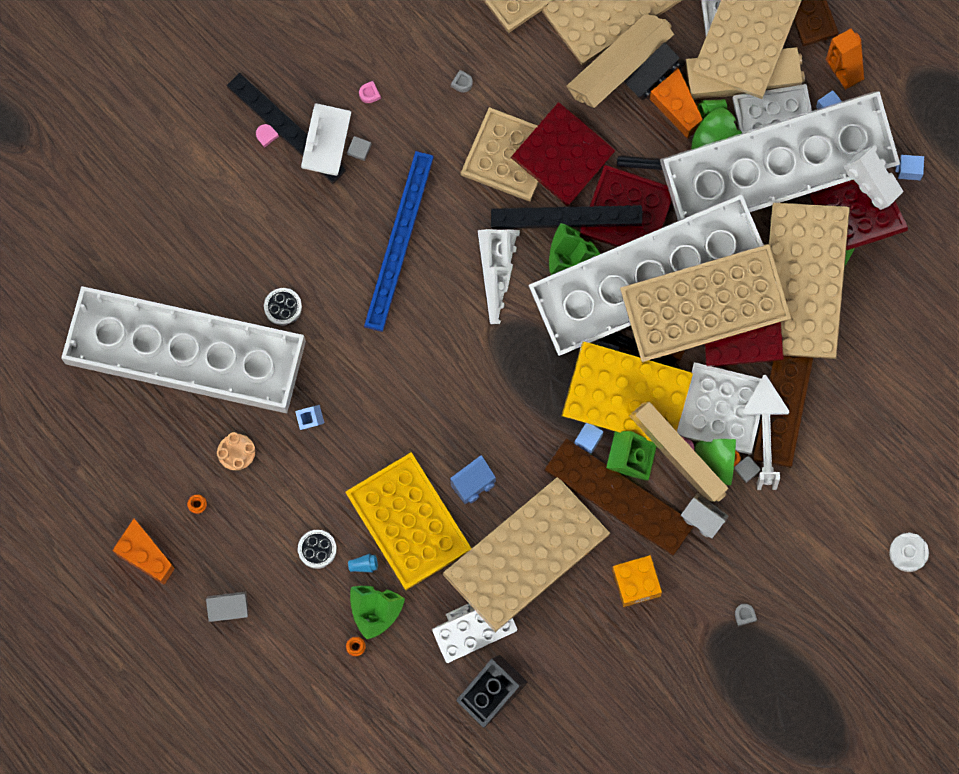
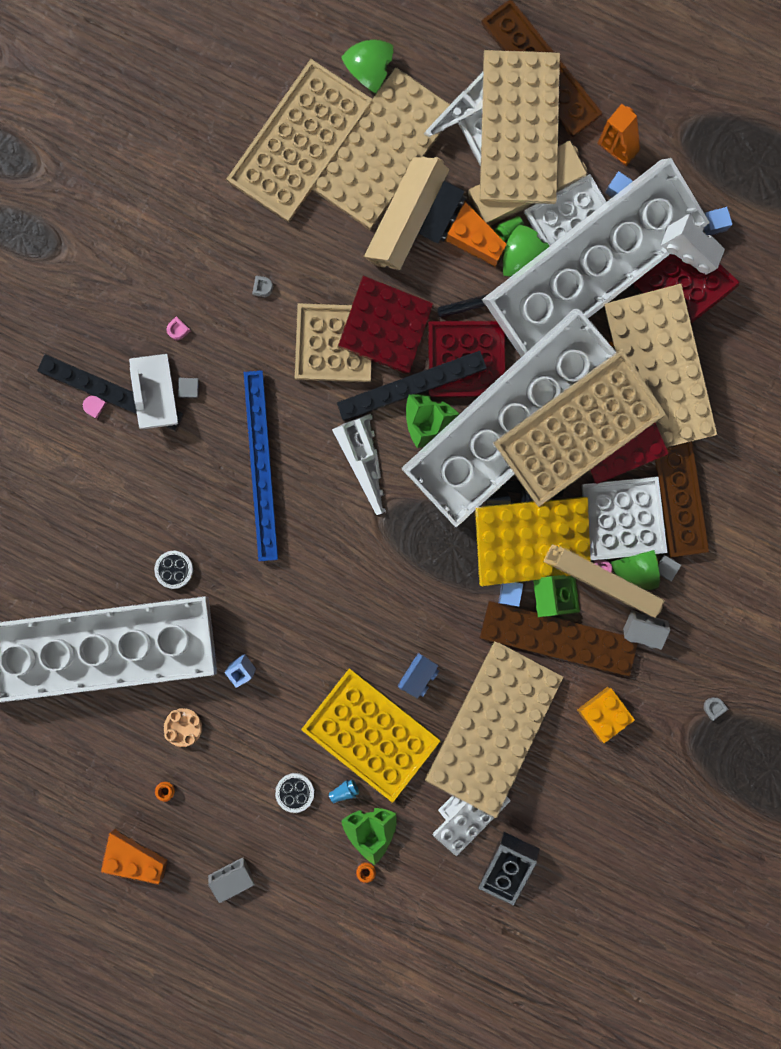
camera: 25 degrees left, 10 degrees up
(766, 402) = (664, 499): white piece -> none

